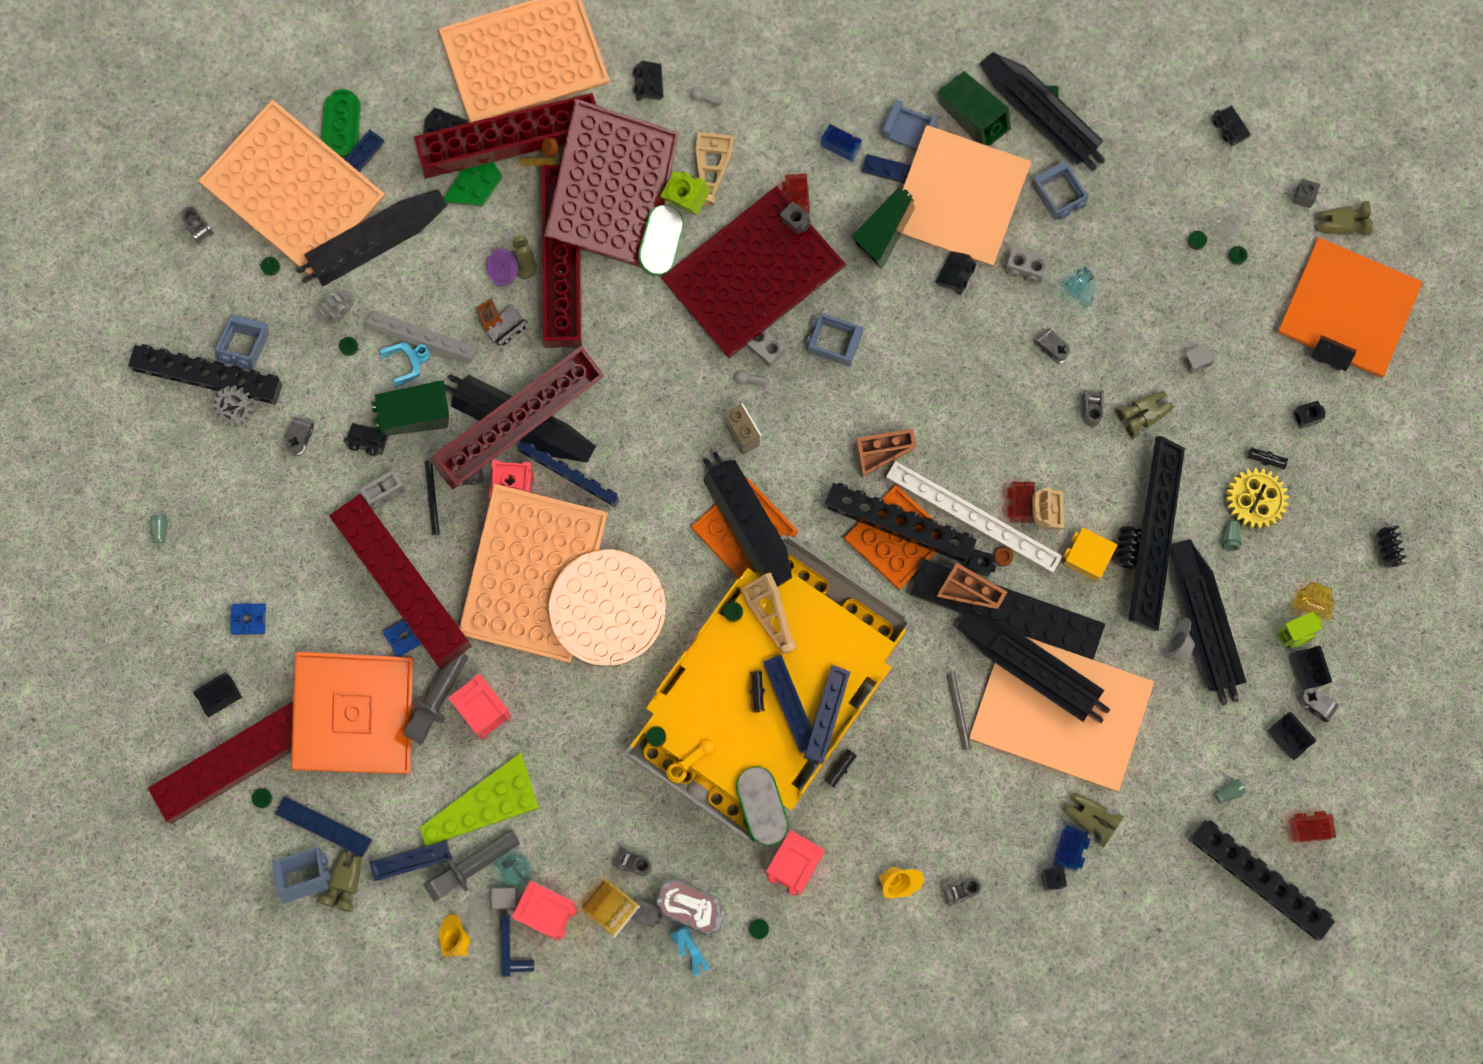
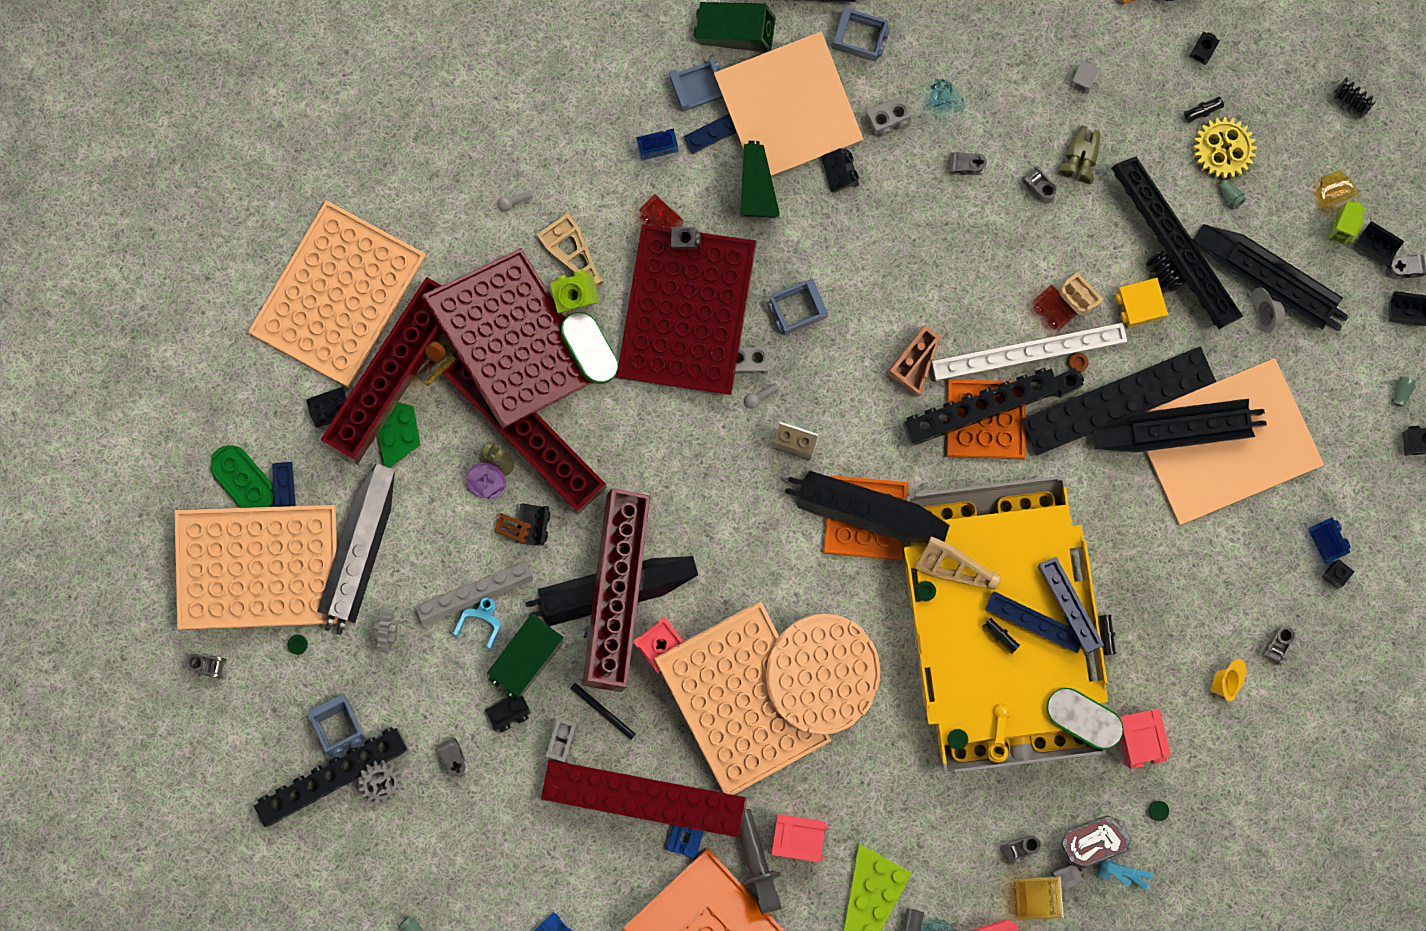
camera: 40 degrees left, 5 degrees up
(348, 346) = (422, 652): dark green tile -> none
(562, 469) = (699, 595): dark blue plate -> none
(648, 81) = (457, 227): black bracket -> none
(958, 711) = (1153, 511): flat silver bar -> none
(971, 588) = (1080, 411): nougat wedge -> none
(1090, 816) = (1320, 501): olive piece -> none

